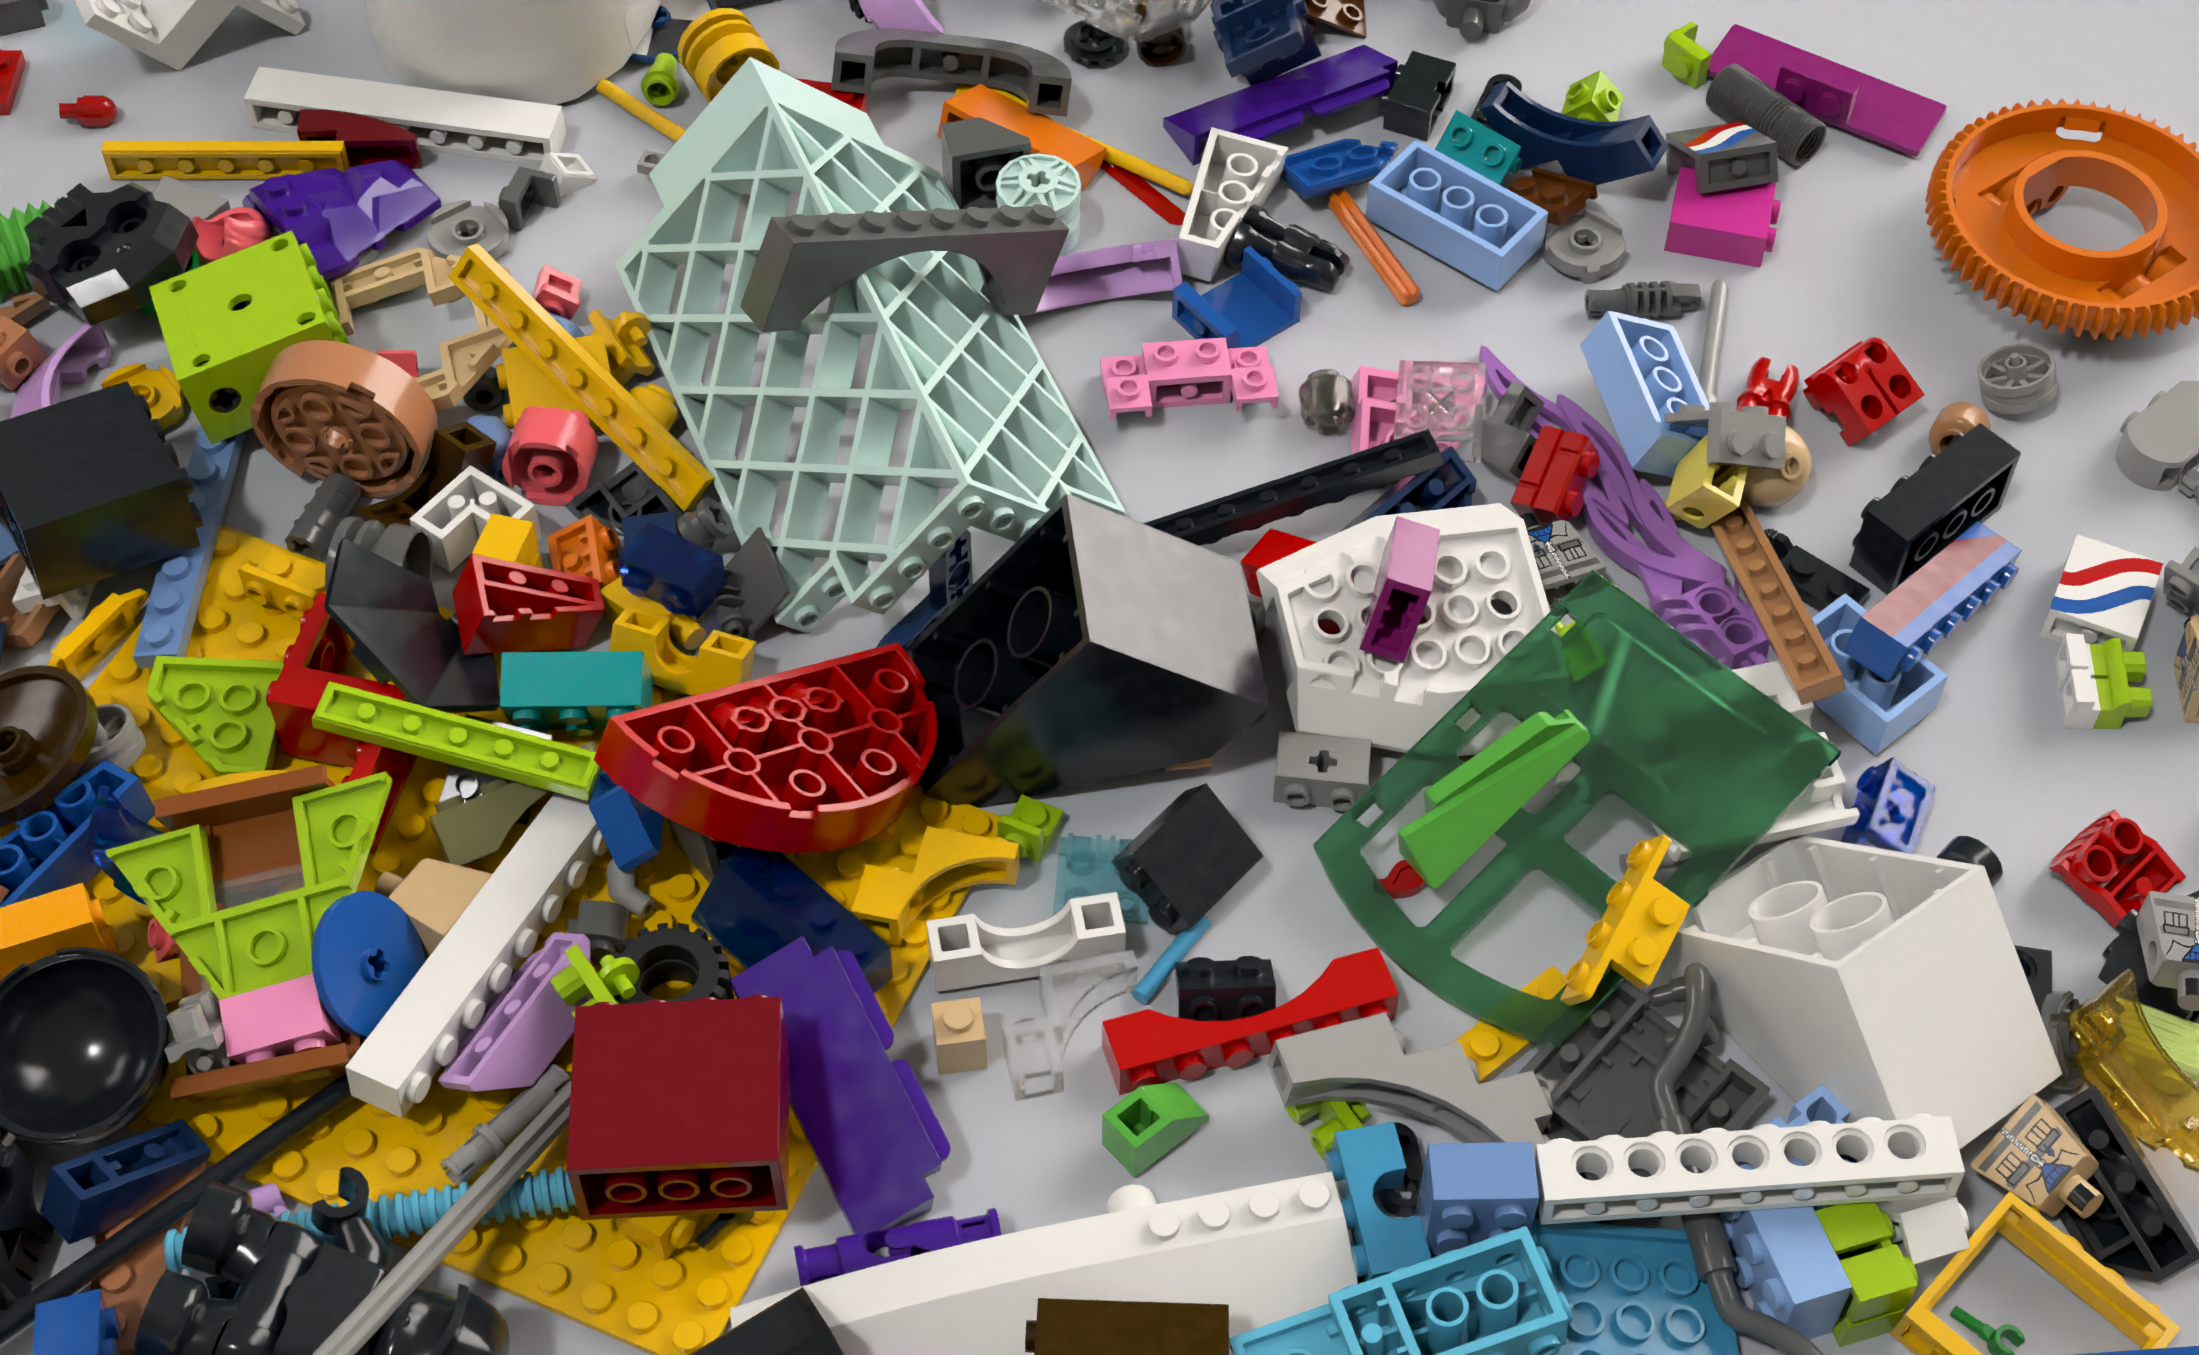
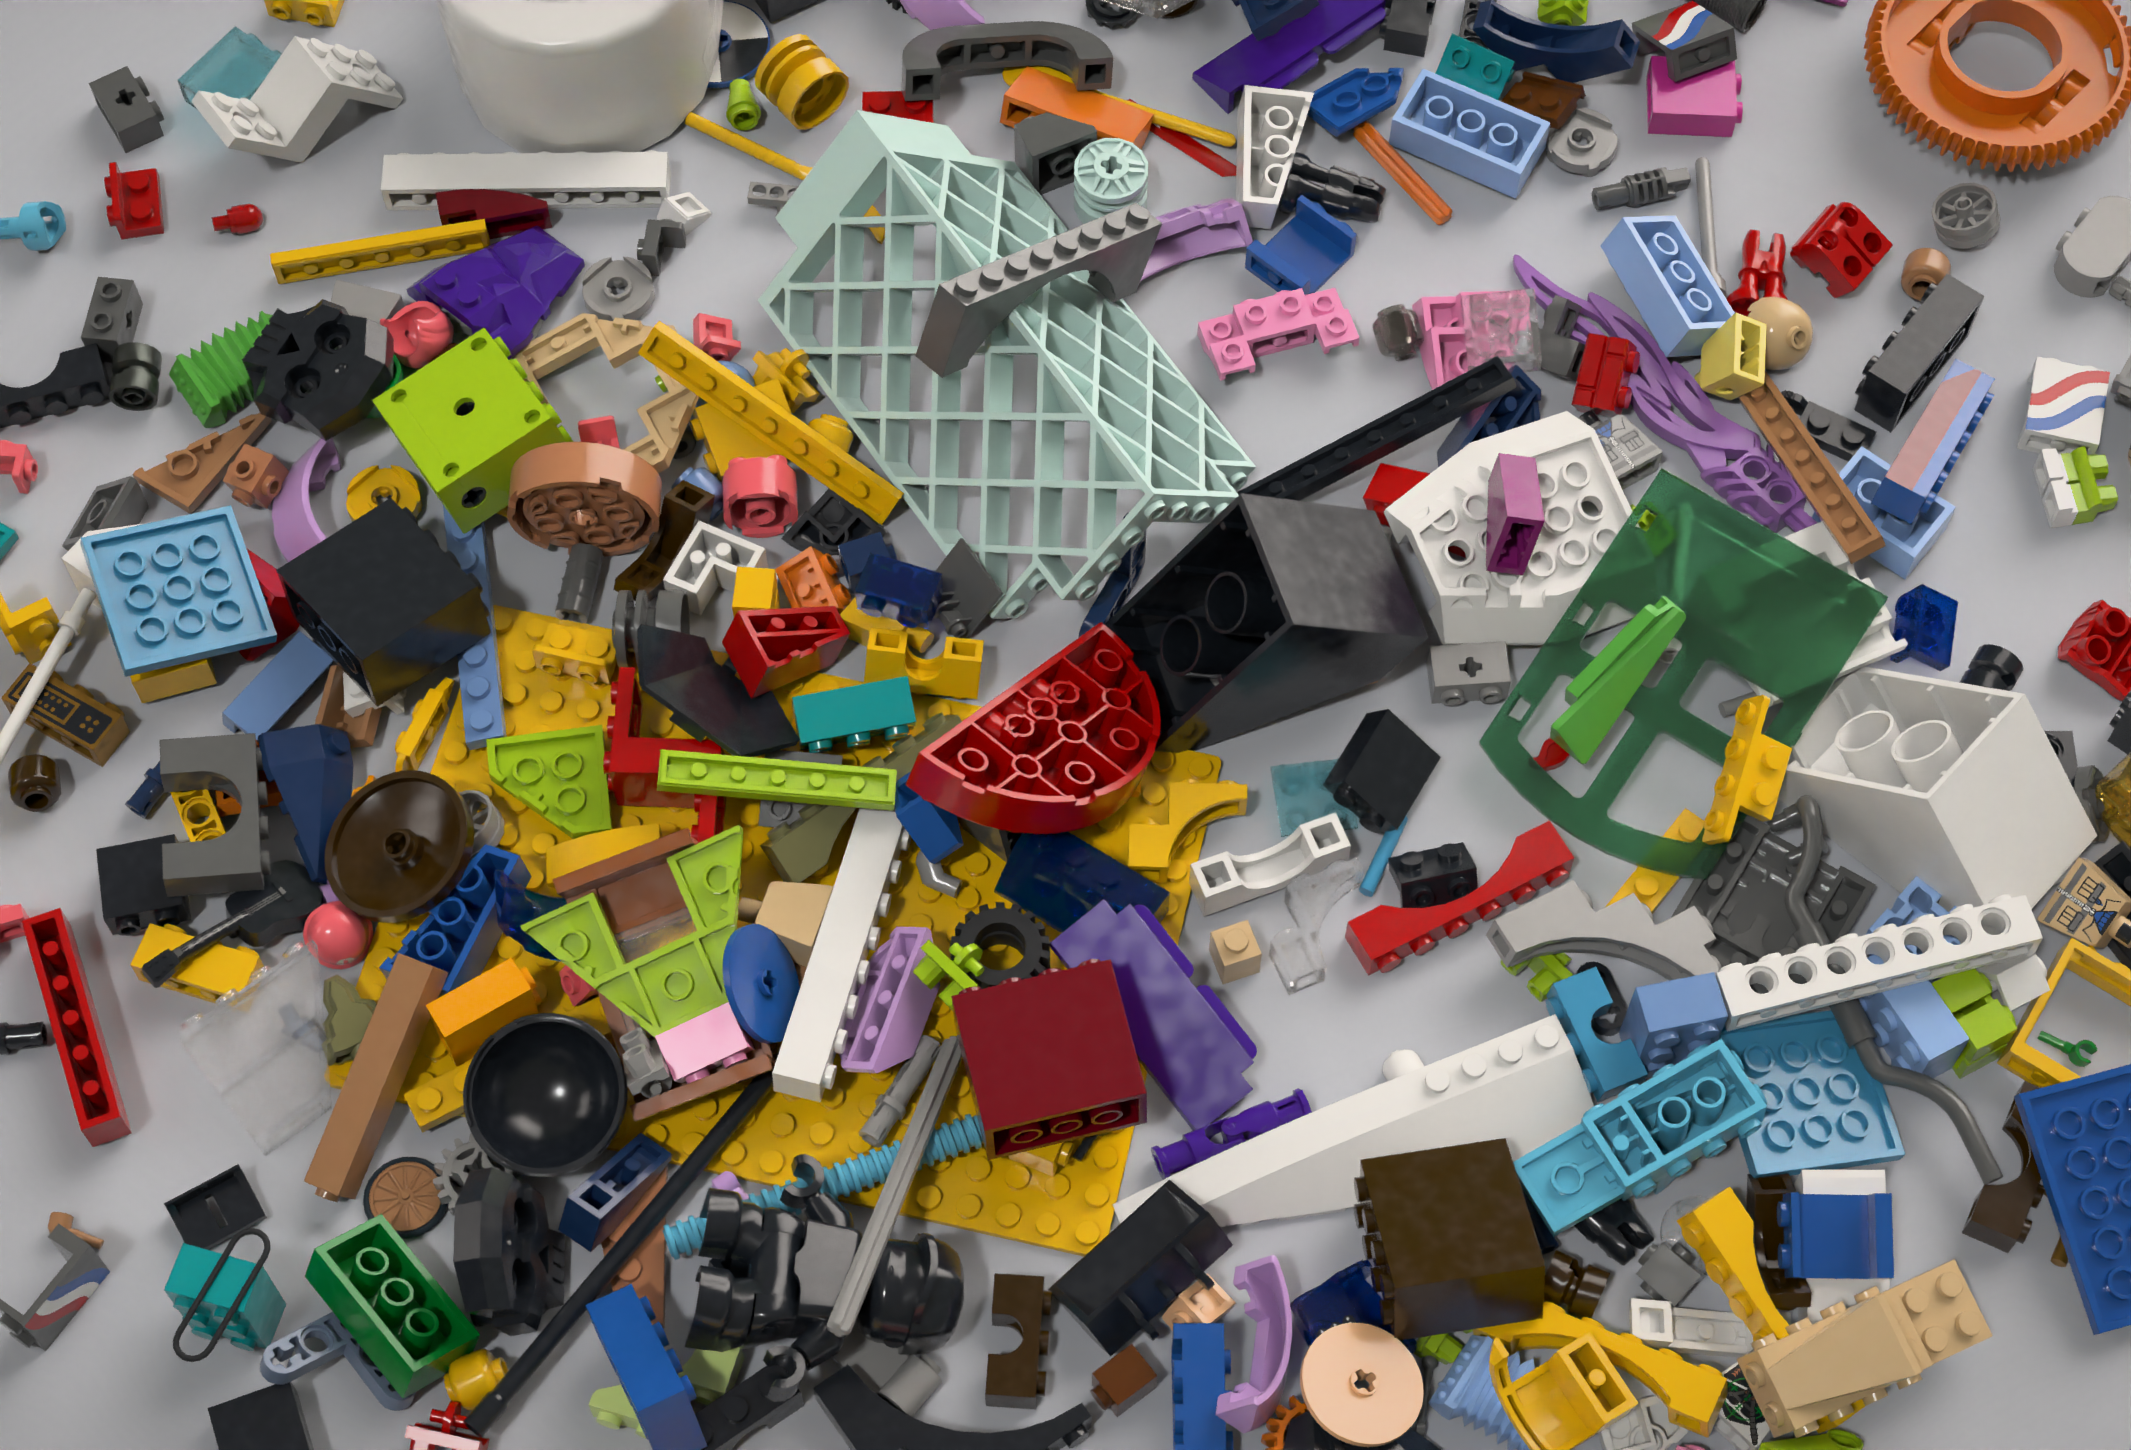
camera: 10 degrees left, 10 degrees up
(603, 924) = (928, 911): dark grey plate -> none
(705, 524) = (908, 539): dark grey wheel -> none
(1031, 826) = (1244, 761): lime bracket -> none
(1150, 1124) = (1403, 999): bright green slope -> none
(1735, 436) = (1755, 322): light grey bracket -> none

